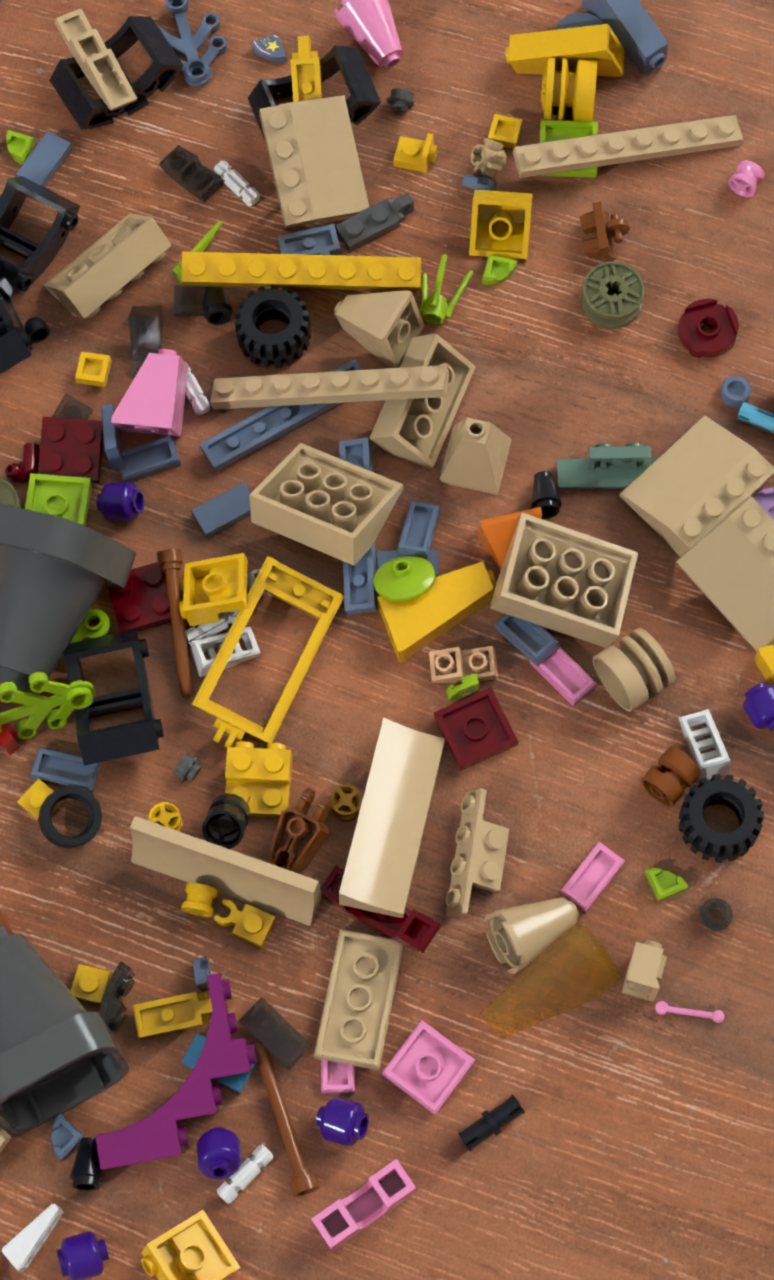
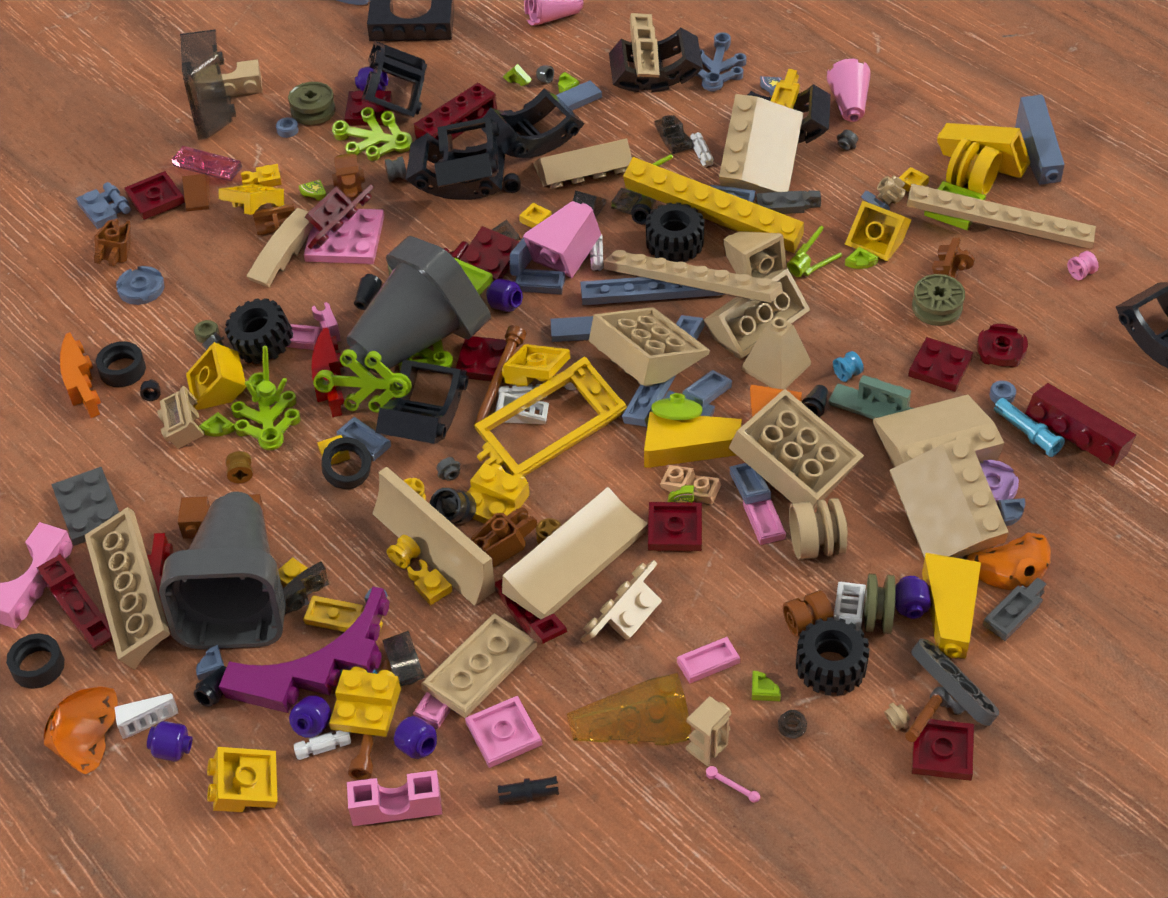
camera: 25 degrees right, 20 degrees down
(268, 1109) = (365, 702): none -> yellow plate
(415, 153) = (840, 174): yellow bracket -> none
(527, 930) = (633, 664): tan cone -> none
(557, 431) = (847, 366): none -> dark azure wheel
(653, 381) = (940, 364): none -> dark red plate
(742, 734) = (879, 603): none -> olive wheel

